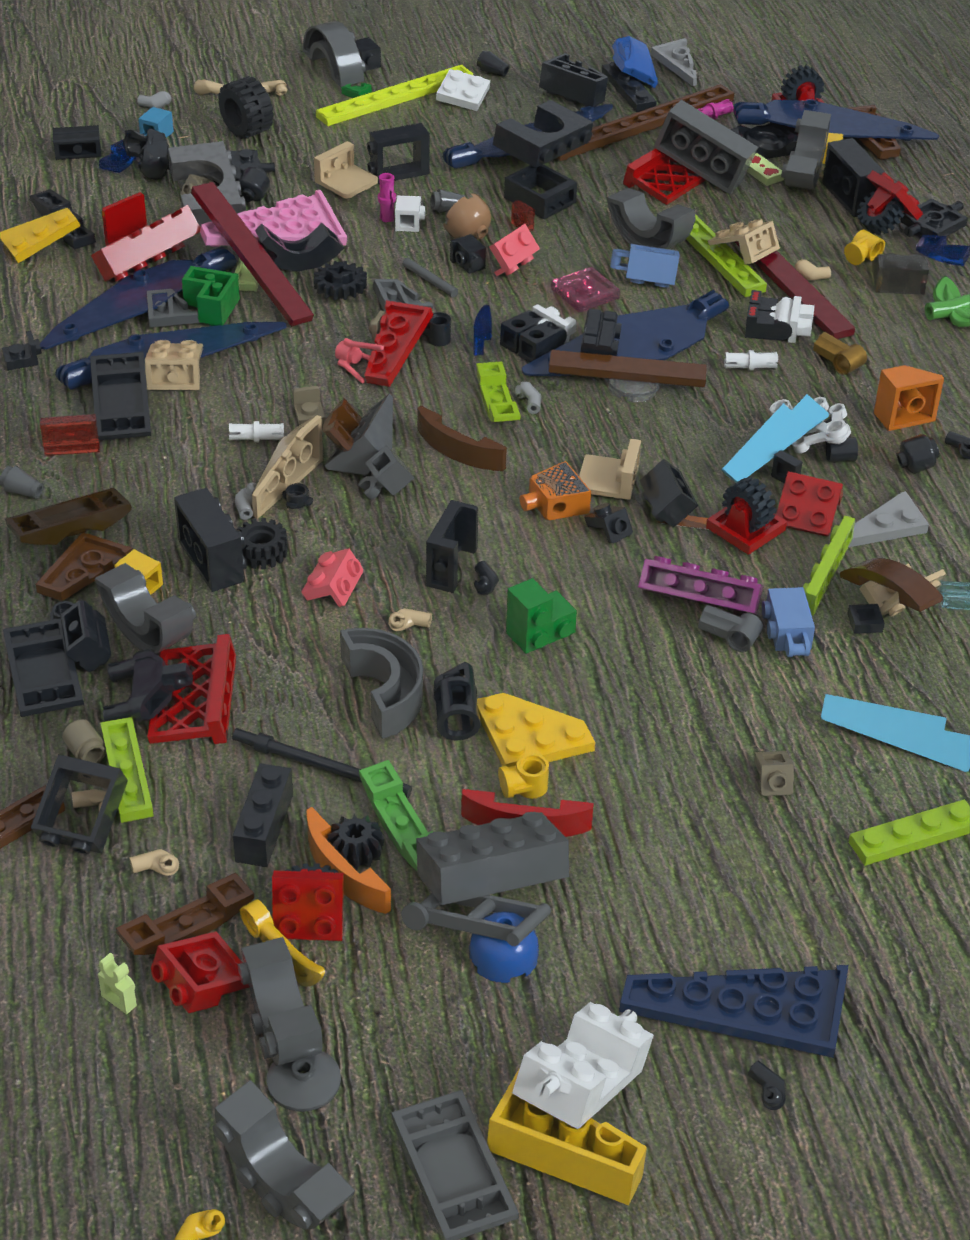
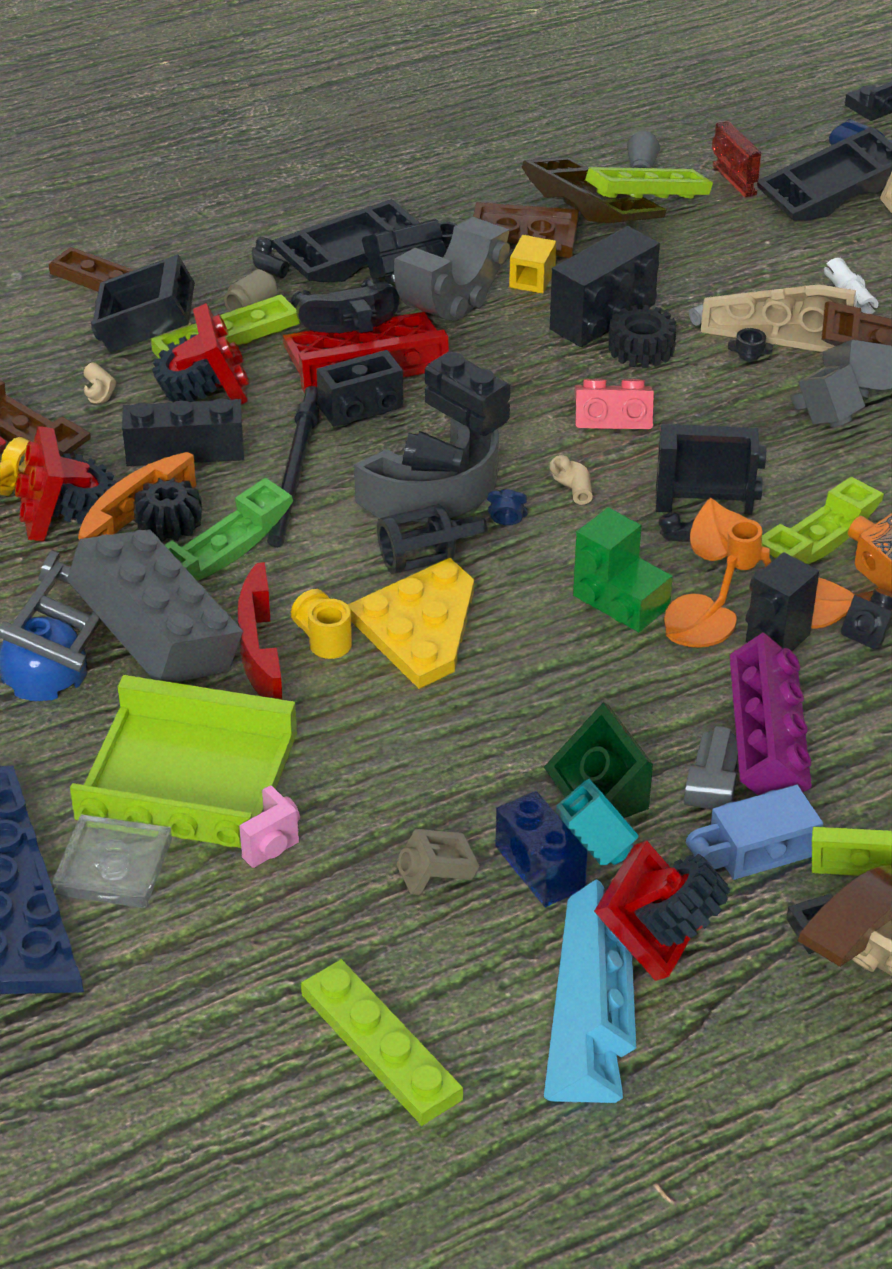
camera: 75 degrees right, 0 degrees up
(28, 729) = (265, 260): none -> black arm
(80, 484) = (652, 181): none -> lime plate
(182, 782) = (202, 362): none -> plate
(264, 700) = (360, 388): none -> black brick
(345, 626) = (467, 393): none -> black brick
(402, 664) = (431, 454): none -> black cone
(432, 656) = (507, 506): none -> dark blue plate
(510, 520) = (827, 526): none -> lime slope
(581, 543) = (719, 533): none -> orange plant
(605, 550) = (782, 601): none -> black brick
(644, 883) = (188, 759): none -> lime panel
(718, 672) = (609, 758): none -> dark green slope
(728, 841) = (270, 831): none -> bright pink bracket
(731, 935) = (112, 861): none -> clear plate
(782, 717) = (540, 848): none -> clear blue brick
(783, 679) = (597, 824): none -> teal brick
(863, 659) = (660, 907): none -> plate

